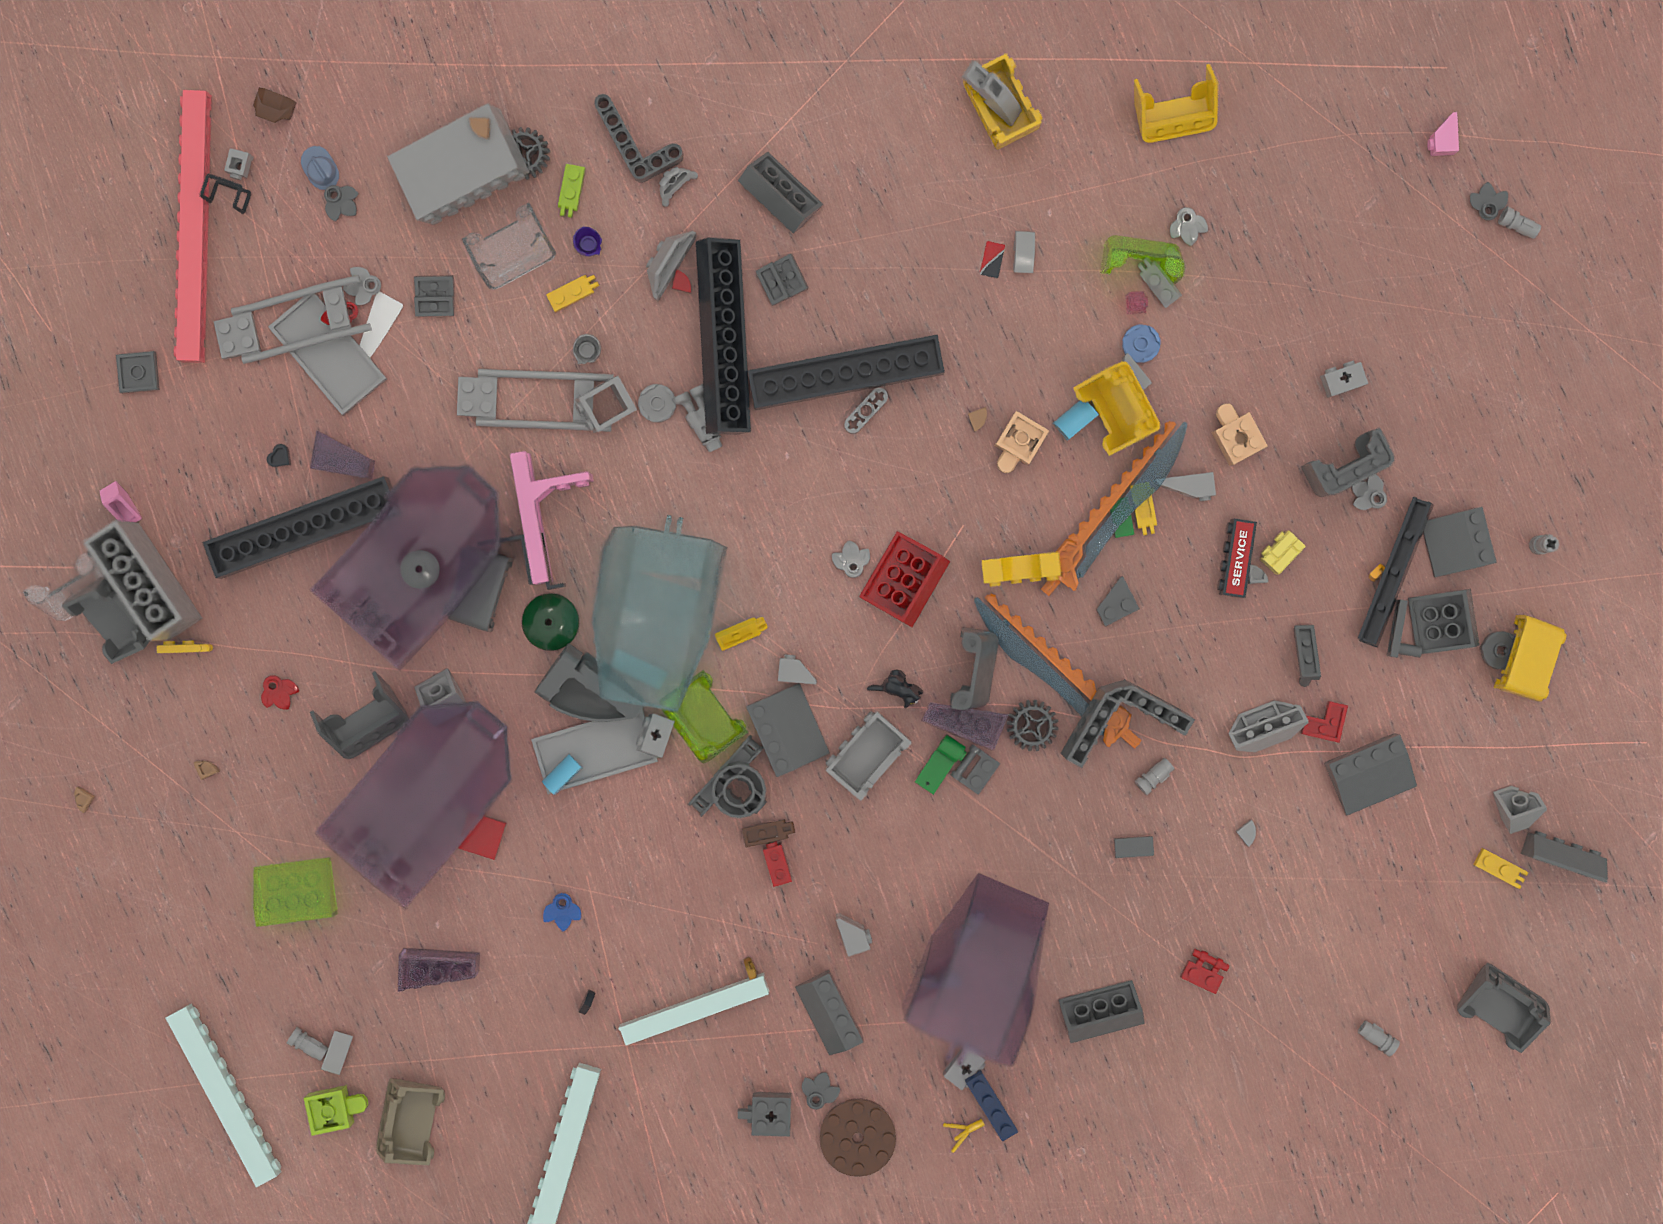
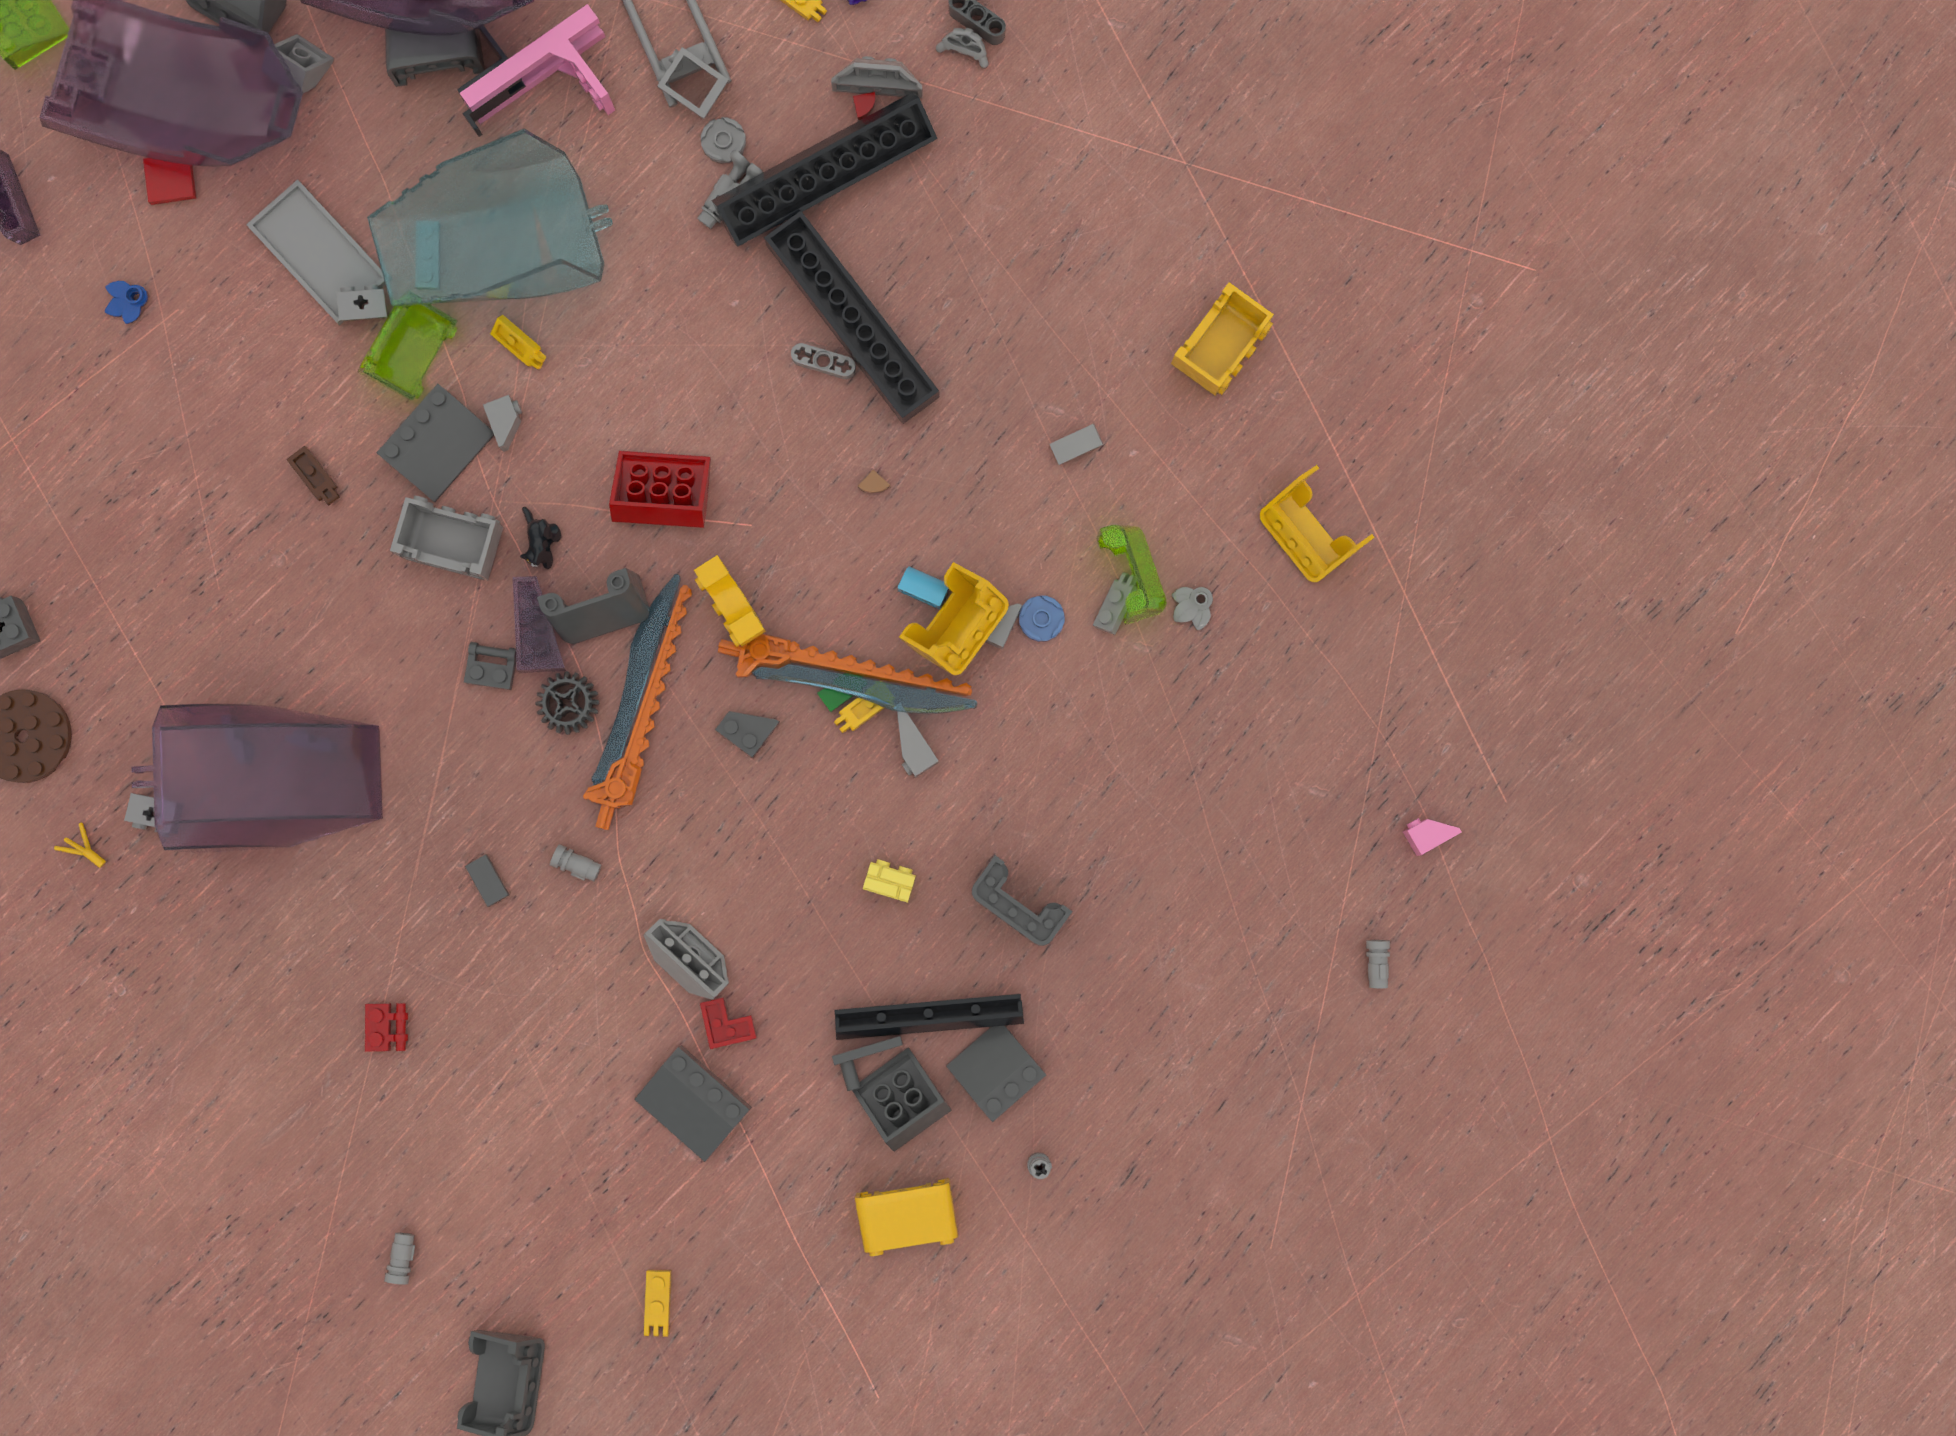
camera: 55 degrees right, 5 degrees down
(561, 774) = (272, 227): medium azure brick -> none
(564, 622) = (449, 140): dark green dish -> none
(574, 689) = (363, 190): dark grey panel -> none
(586, 348) = (743, 38): light grey hair -> none
(587, 1002) = (37, 373): black tile -> none
(694, 1009) = (83, 490): light aqua tile -> none
(736, 767) = (328, 407): dark grey piece -> none
(750, 968) = (156, 529): pearl gold tile -> none
(777, 863) = (284, 502): red brick -> none
(780, 192) = (1010, 158): dark grey slope -> none
(782, 279) = (919, 206): dark grey slope -> none
(819, 1087) = (58, 669): dark grey plate -> none
(829, 1013) = (147, 639): dark grey slope -> none
(851, 556) = (658, 420): light grey plate -> none
(854, 935) = (242, 617): light grey slope -> none
(940, 763) = (478, 625): green door -> none
(991, 1105) = (123, 862): dark blue plate -> none
(992, 259) = (1052, 417): sticker -> none
(995, 92) = (1225, 323): light grey slope -> none
(1019, 442) = (869, 537): light nougat brick -> none
(1101, 1011) = (285, 933): dark grey slope -> none
(1105, 703) = (647, 786): dark grey brick -> none
(1136, 302) = (1082, 590): clear pink brick -> none
(1238, 435) = (993, 768): light nougat brick -> none
(1238, 558) = (858, 836): brick -> none
(1247, 832) = (562, 998): light grey tile -> none
(1257, 575) = (852, 867): light grey tile -> none
(1307, 654) = (789, 963): dark grey piece -> none
(1355, 378) = (1099, 852): light grey brick -> none
(1367, 490) = (1002, 942): light grey plate -> none
(1377, 572) = (918, 996): light orange tile -> none
(1488, 199) = (1387, 916): dark grey plate -> none
(1489, 649) = (896, 1165): dark grey plate -> none
(1518, 808) = (733, 1287): light grey slope -> none
(1565, 856) = (703, 1368): dark grey slope -> none

